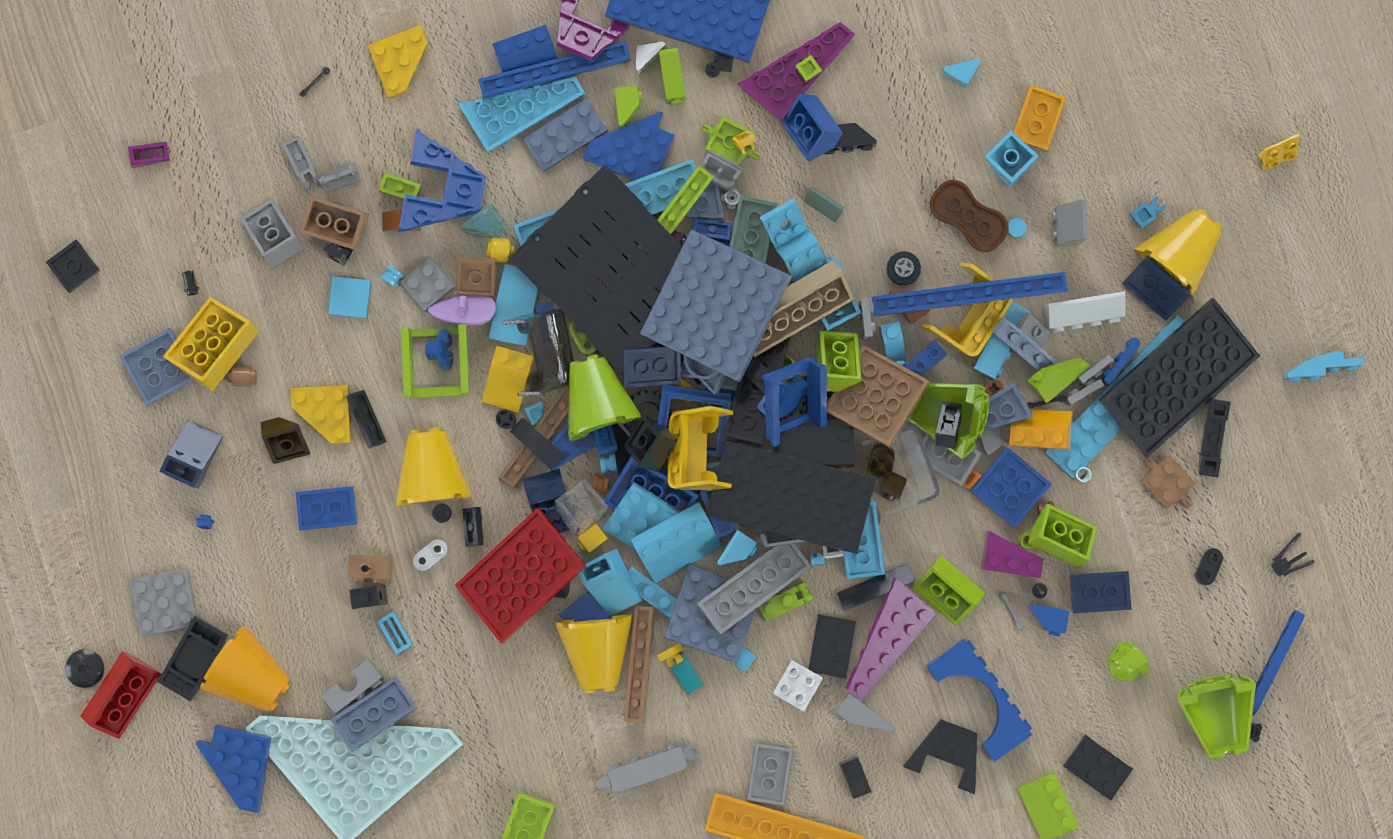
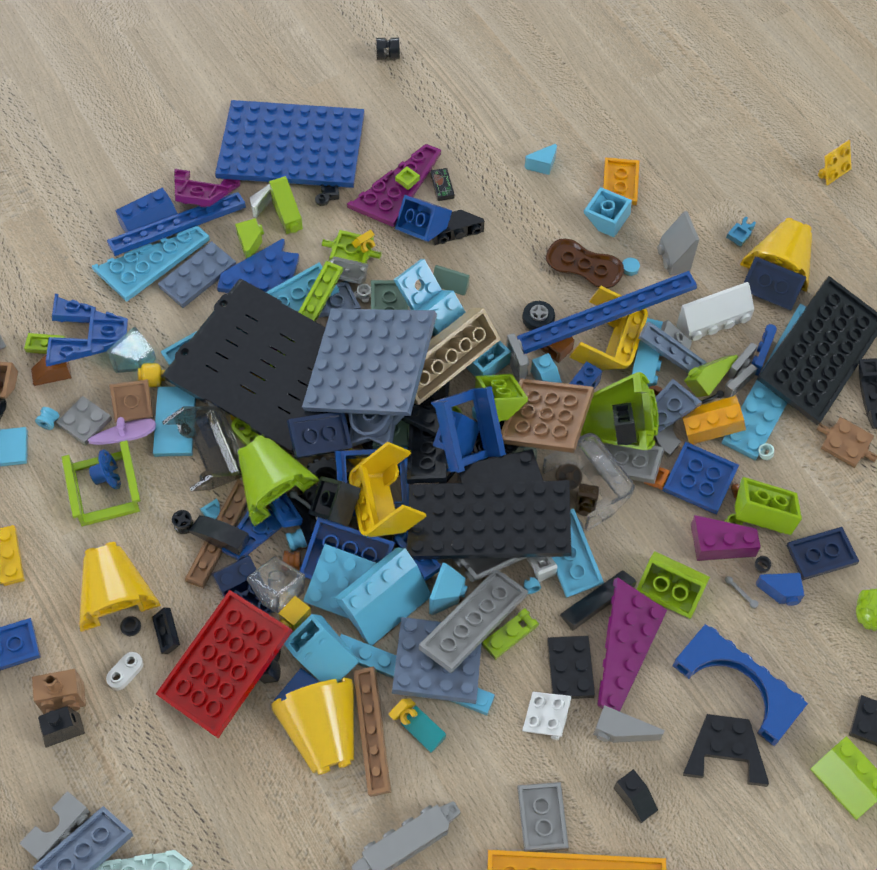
camera: 20 degrees left, 25 degrees down
(366, 419) = (37, 551): black plate -> none
(398, 59) = (30, 245): yellow plate -> none
(401, 628) = (108, 774): medium azure tile -> none
(506, 378) = (175, 477): yellow slope -> none
(846, 77) = (442, 184): none -> black tile

